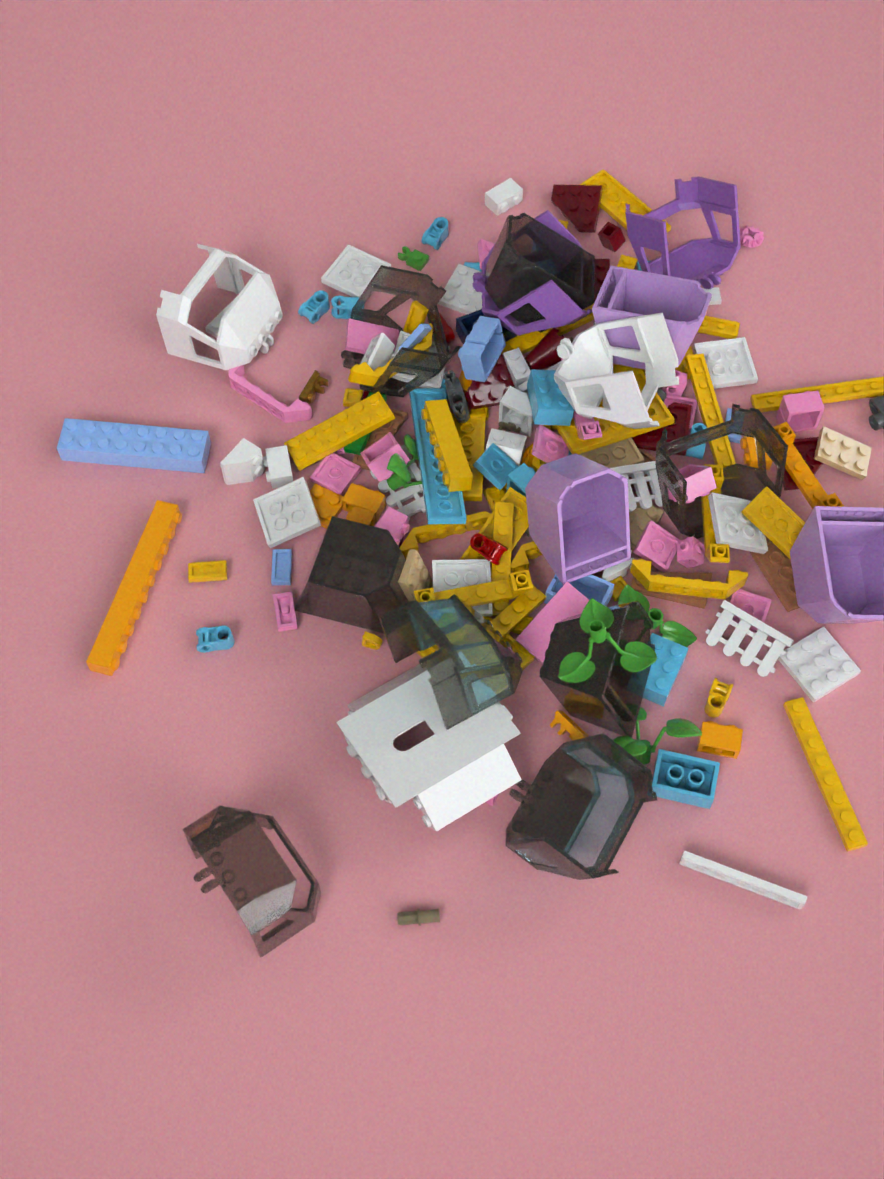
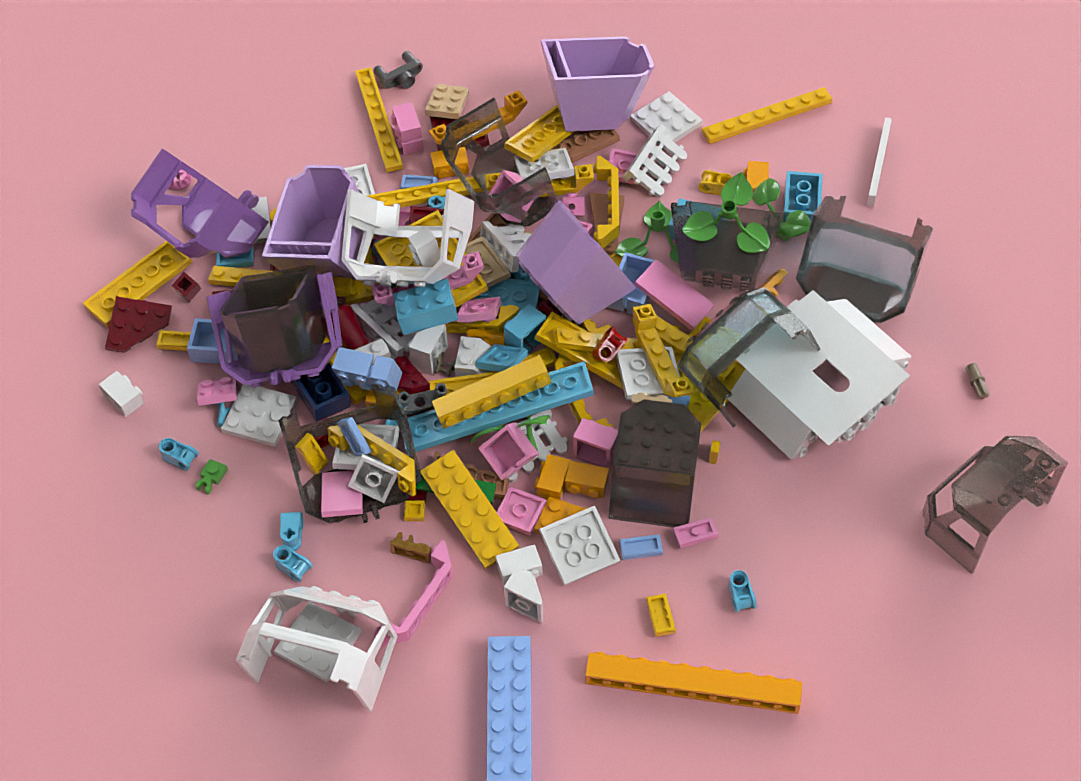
camera: 95 degrees left, 5 degrees down
(352, 271) = (237, 529): white plate -> none

